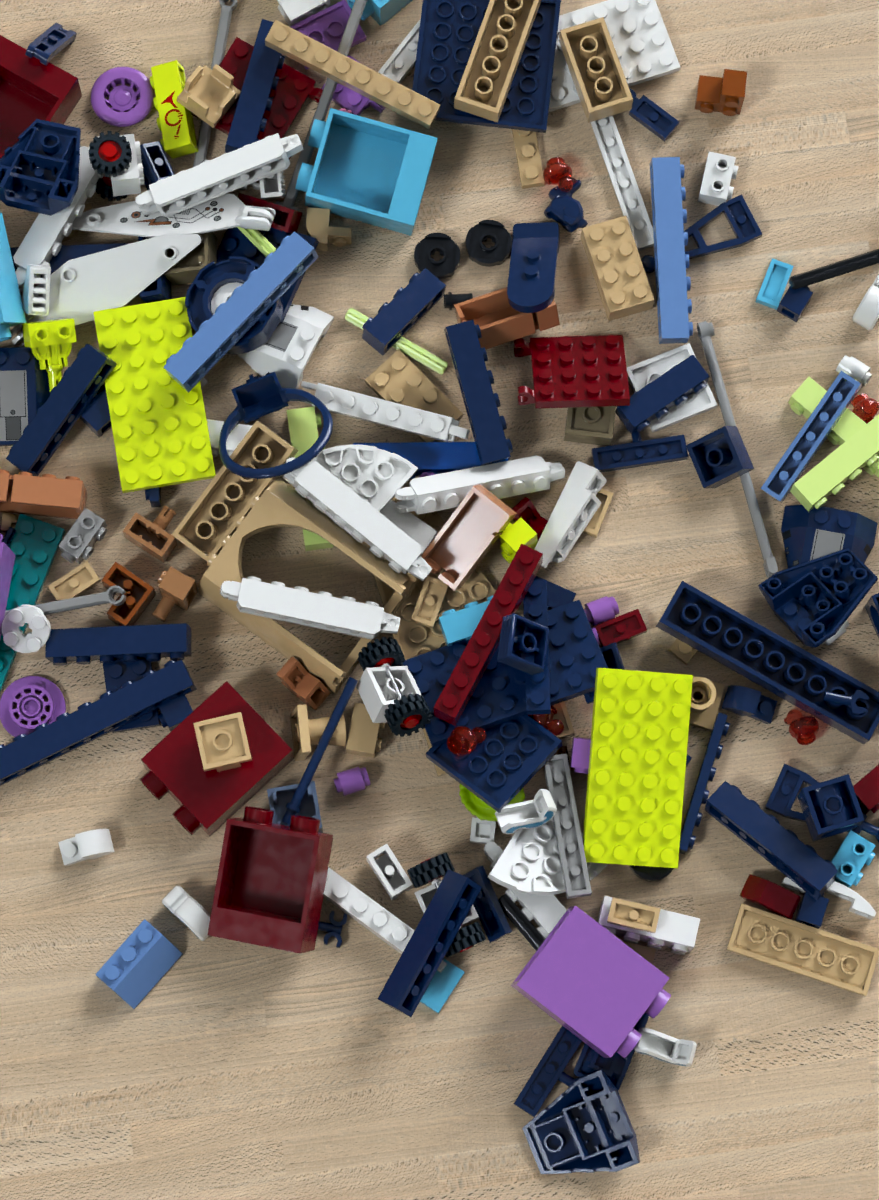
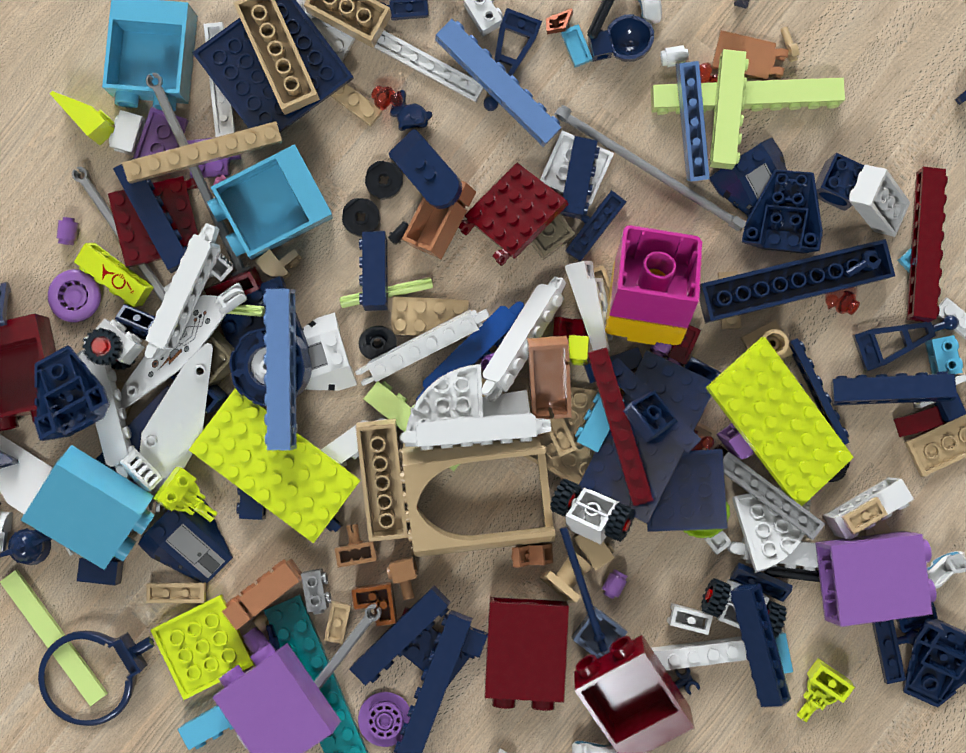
camera: 40 degrees left, 10 degrees up
(37, 622) = (339, 692): white plate -> none
(61, 410) = (228, 528): dark blue brick -> none
(170, 37) = (67, 231): none -> medium lavender brick
(209, 93) = (126, 246): tan panel -> none
(222, 742) = (526, 645): tan panel -> none
(258, 399) = (340, 409): dark blue brick -> none
(310, 608) = (499, 513): white hinge -> none
(335, 375) = (373, 349): none -> black dish
(455, 1051) = (824, 688): none -> neon yellow brick
(464, 740) = (666, 504): clear red animal -> none
(477, 392) = (470, 282): dark blue brick -> none
(527, 813) = (742, 512): white animal -> none
(617, 268) = (475, 123): tan brick -> none
(634, 541) = (654, 286): none -> dark pink piece
(720, 457) = (648, 184): dark blue brick -> none
(749, 703) = (800, 318): dark blue brick -> none
(777, 249) = (558, 22): none -> copper piece
(827, 317) = (630, 37): none -> dark blue cylinder
(830, 807) = (915, 339): dark blue brick -> none

